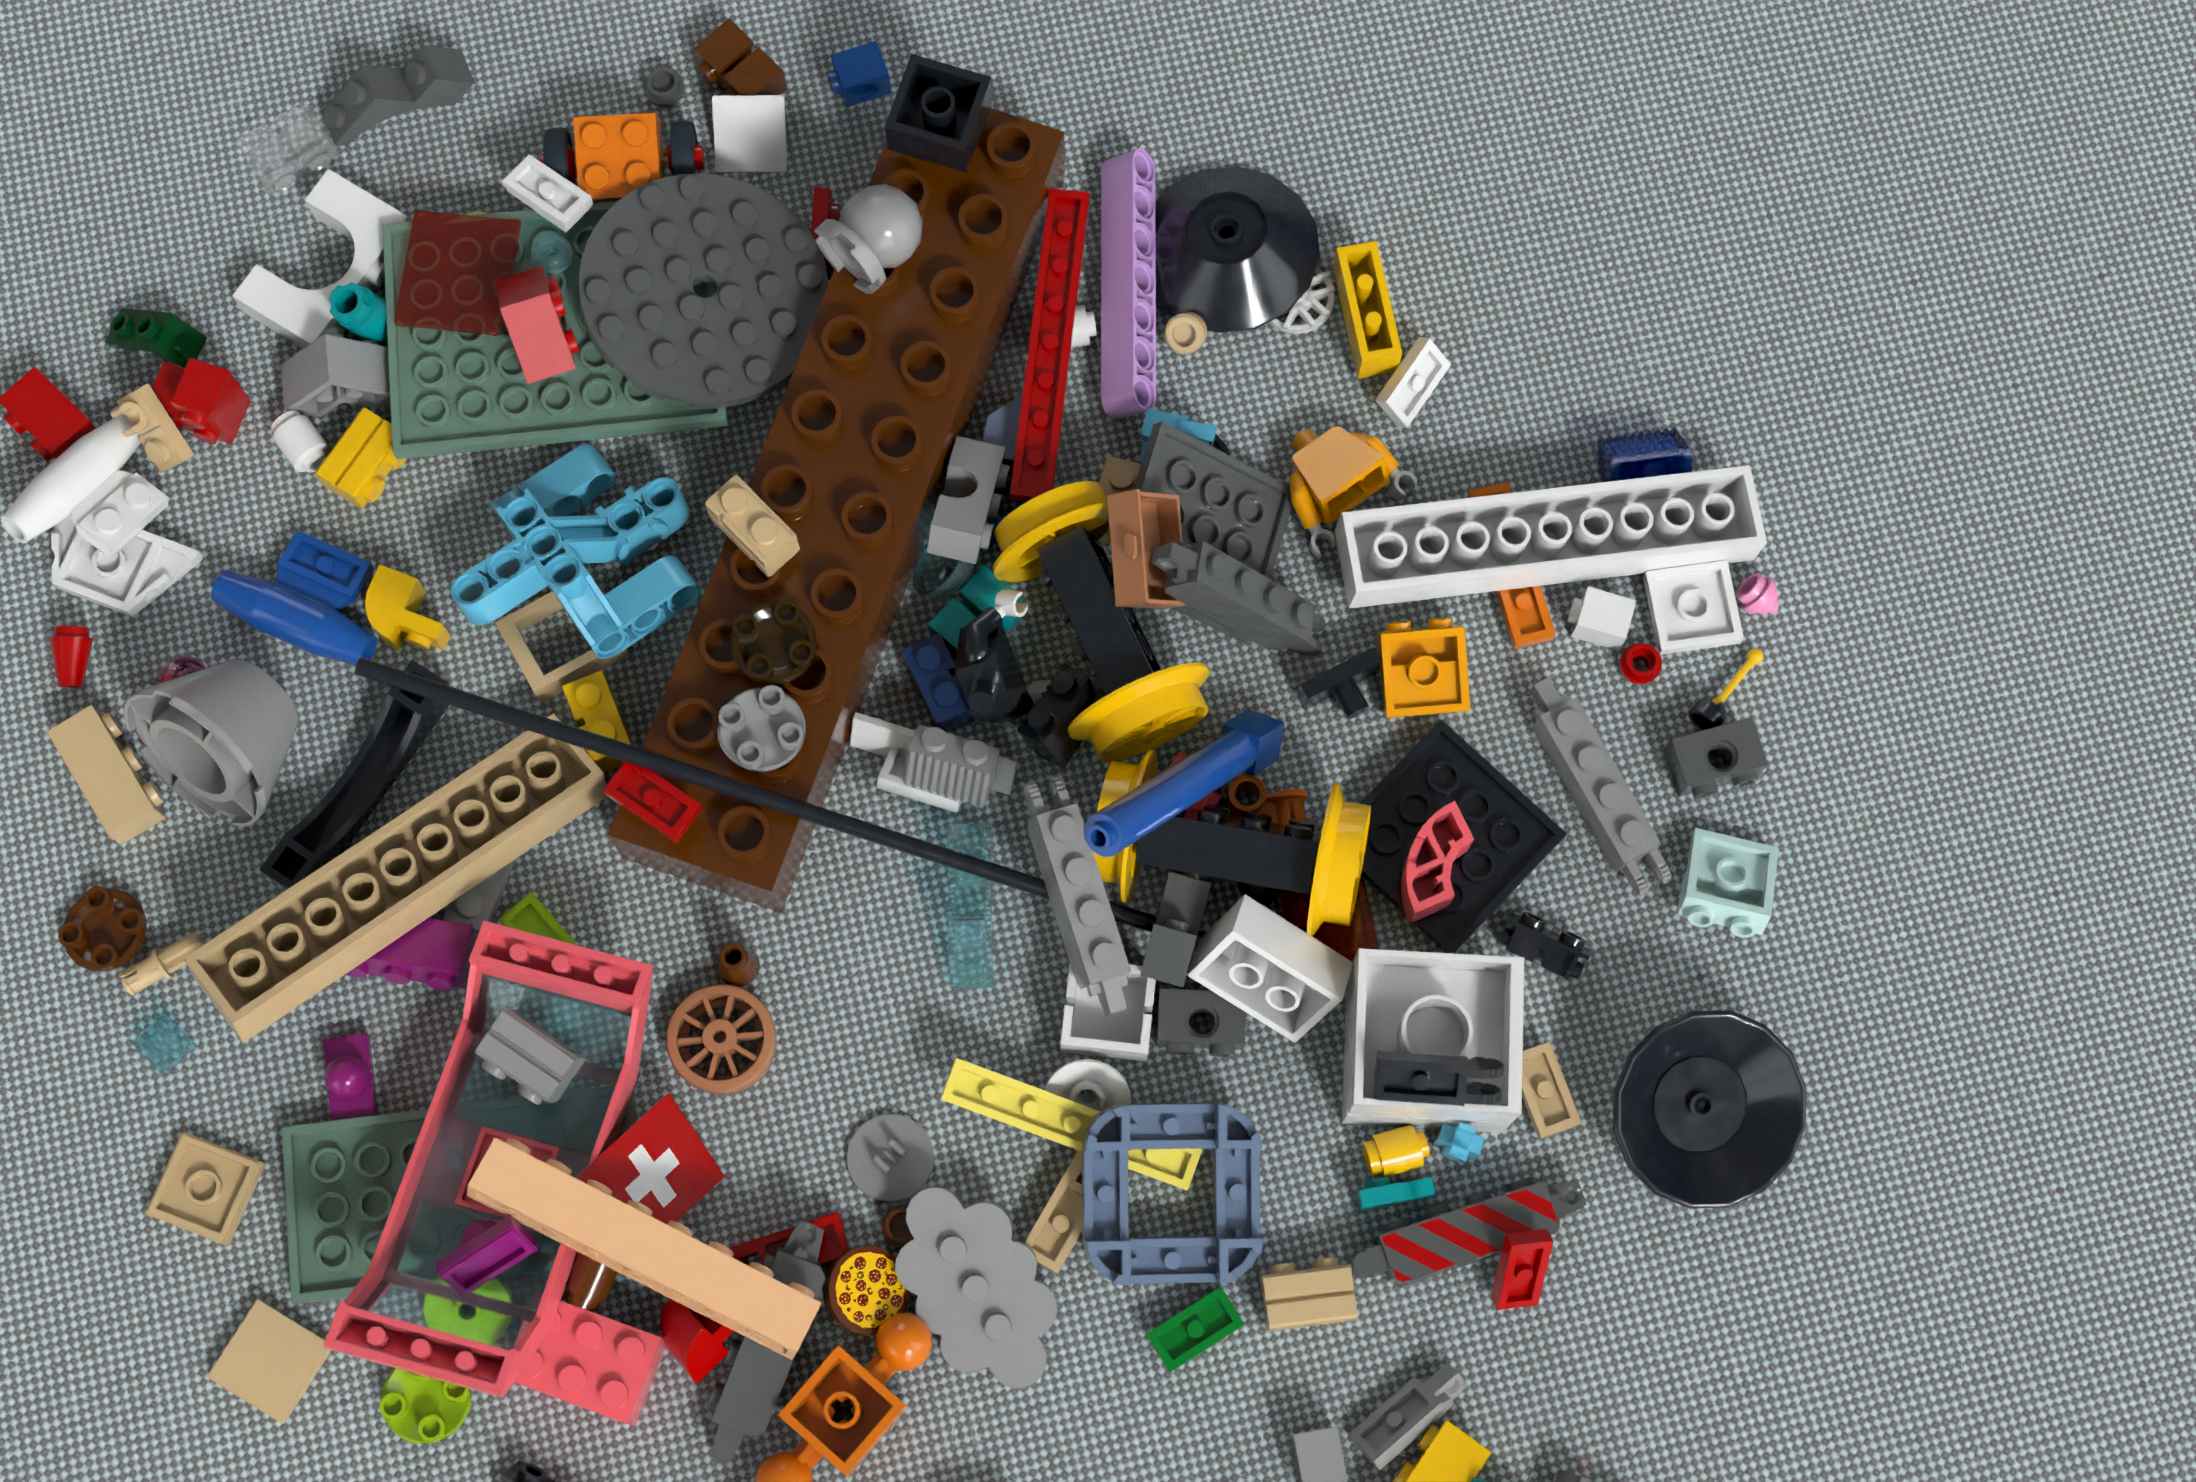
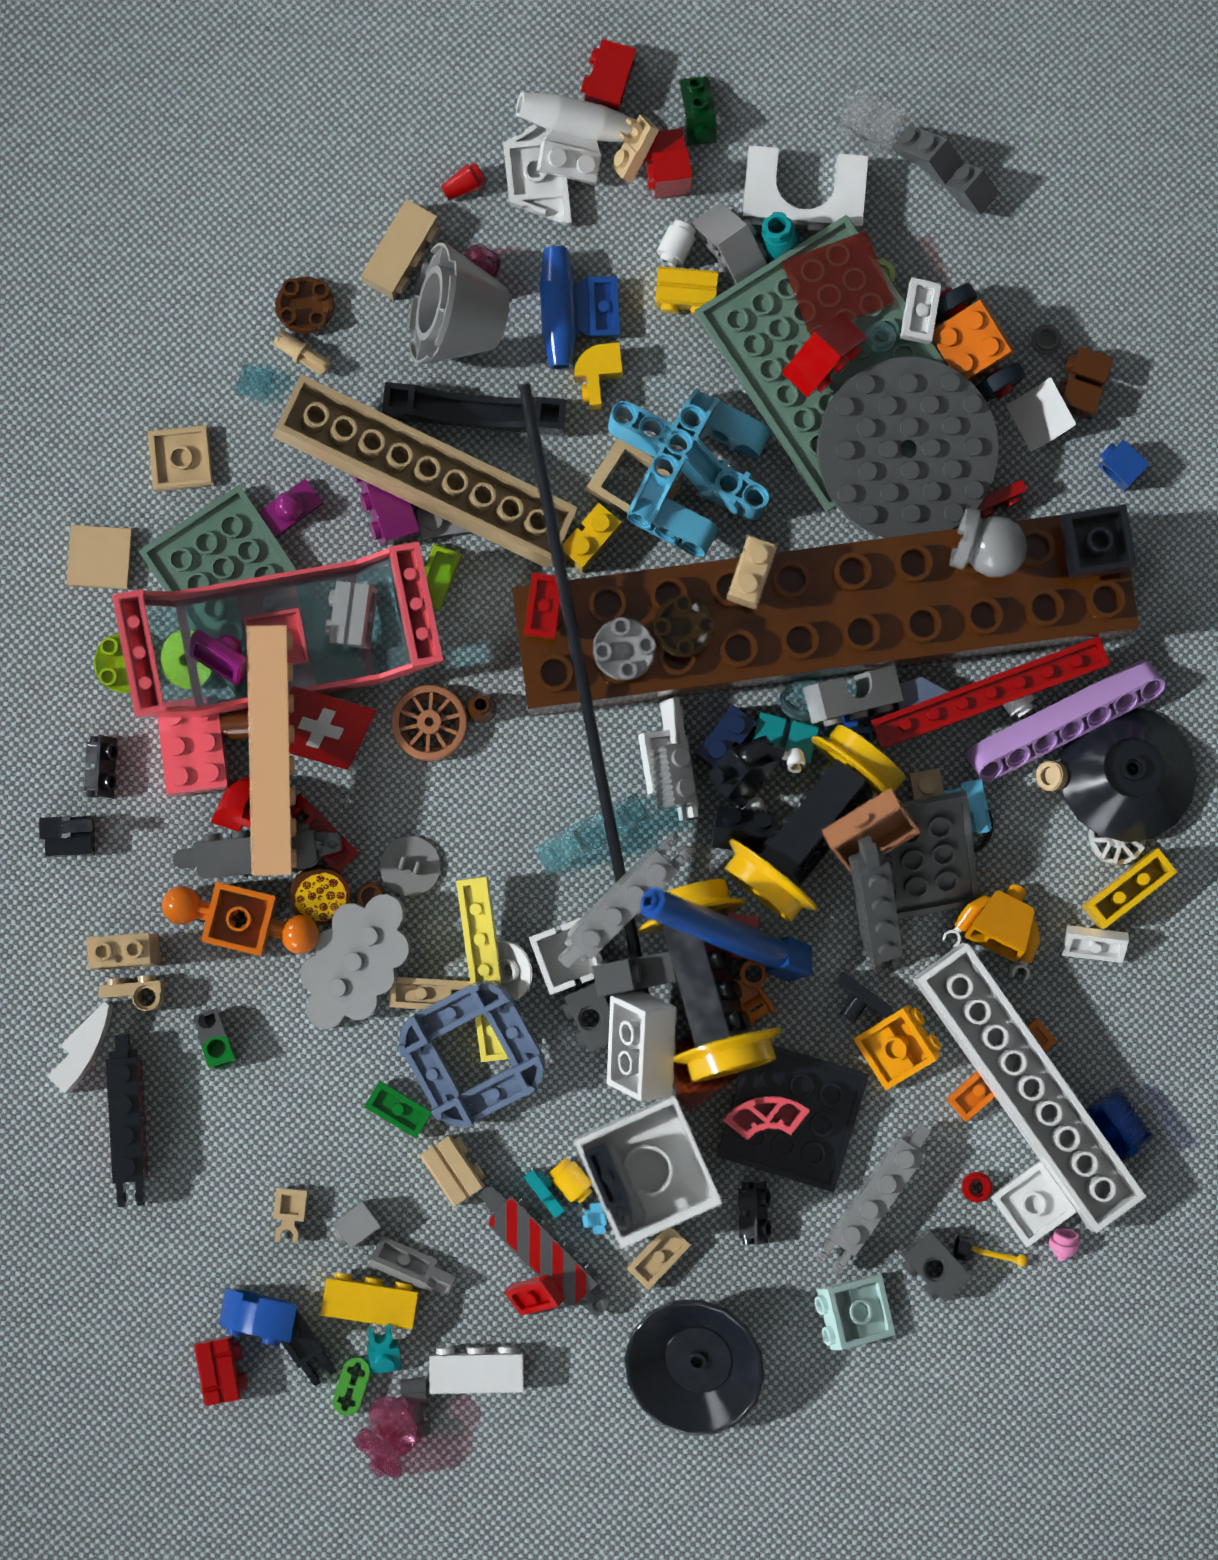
camera: 60 degrees right, 10 degrees up
(1583, 1397) = (476, 1370): none -> white brick
(1601, 618) = (993, 1147): white brick -> none

